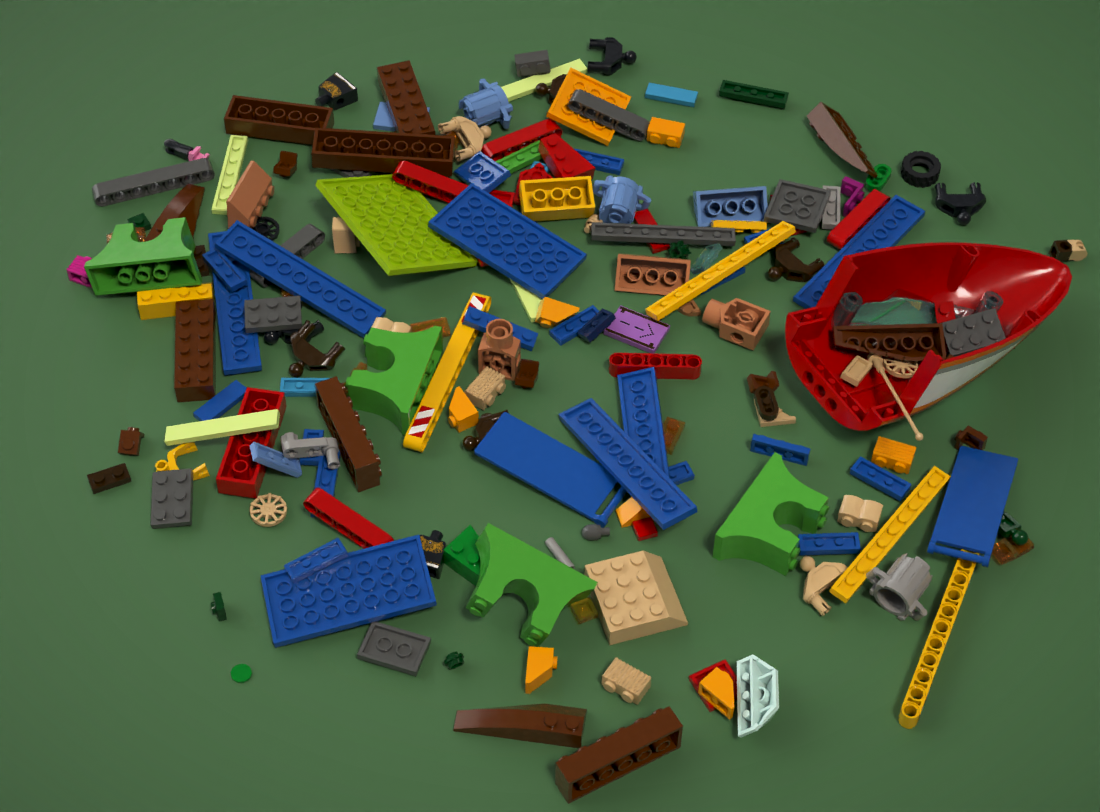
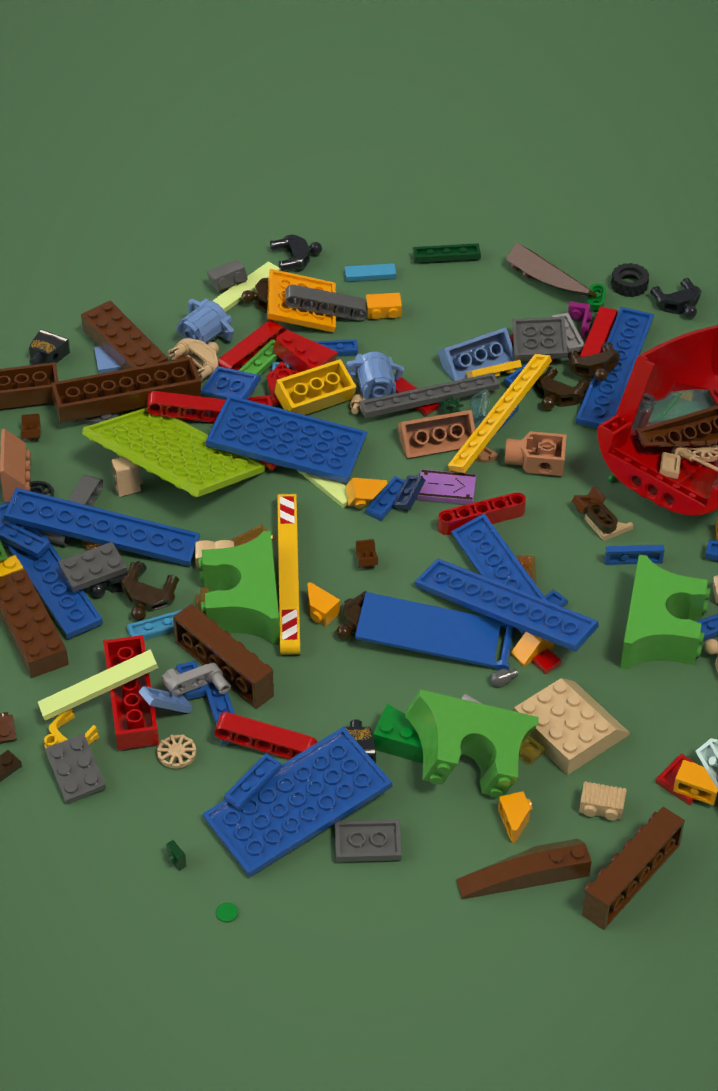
camera: 20 degrees left, 5 degrees down
(221, 402) = (77, 664): blue tile -> none
(454, 660) = (431, 833): dark green plate -> none
(479, 319) = (320, 519): blue plate -> none
(486, 388) = (333, 576): tan brick -> none
(500, 349) = (334, 538): nougat brick -> none
(837, 247) = (596, 365): none -> dark brown connector

